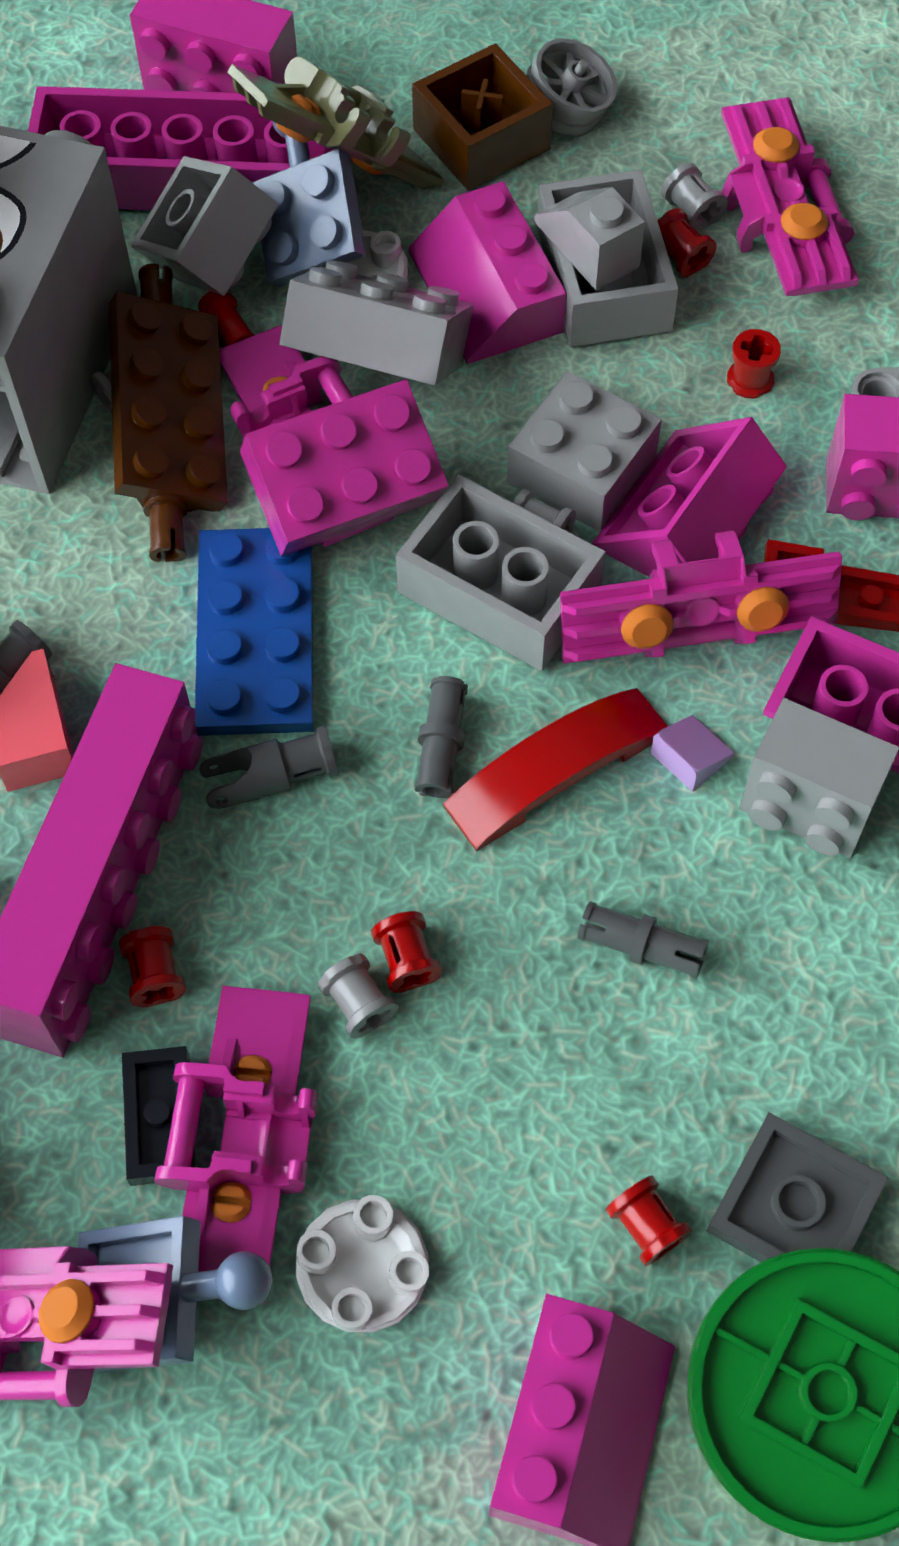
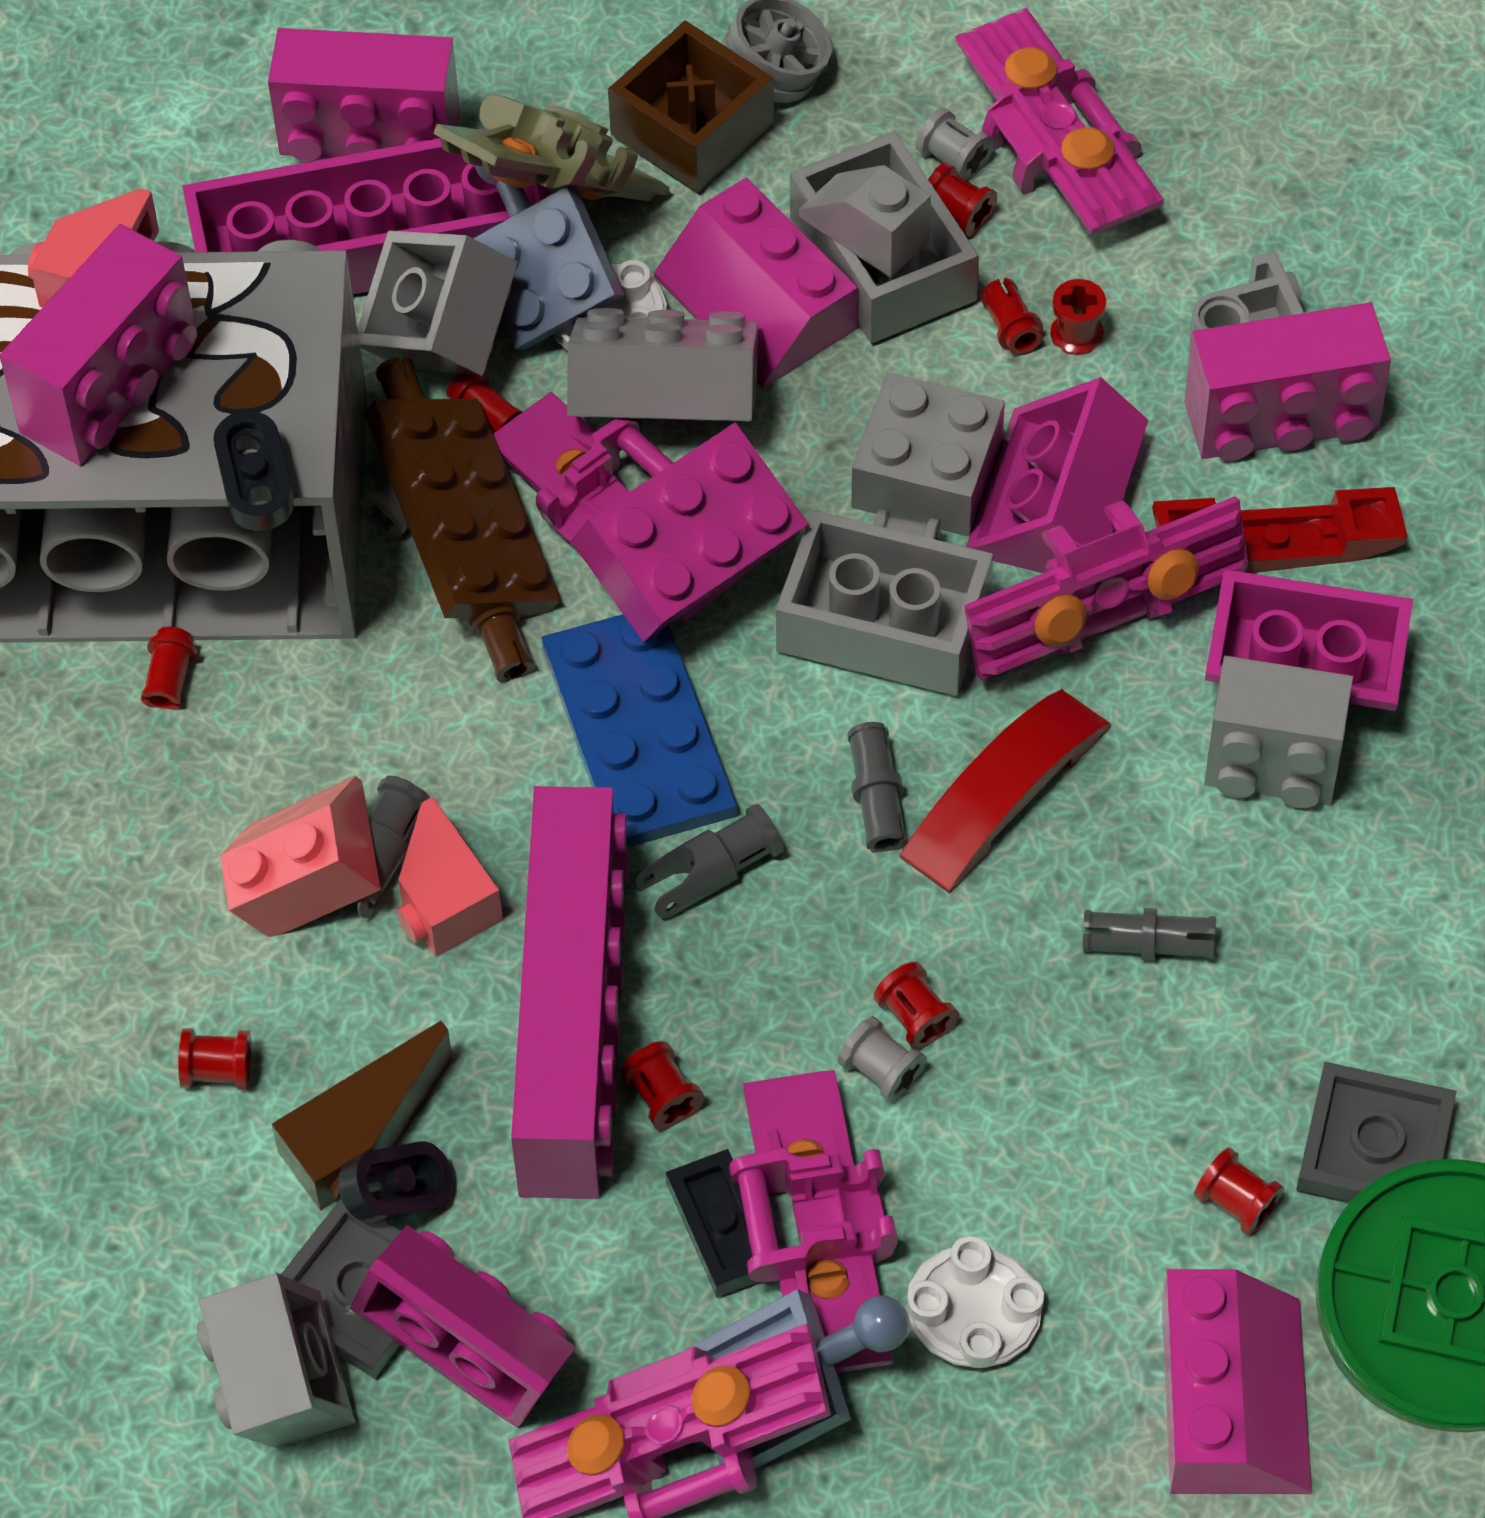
camera: 15 degrees left, 5 degrees down
(690, 751) = (1137, 740): lavender slope -> none
(699, 360) = (1016, 326): none -> red pin

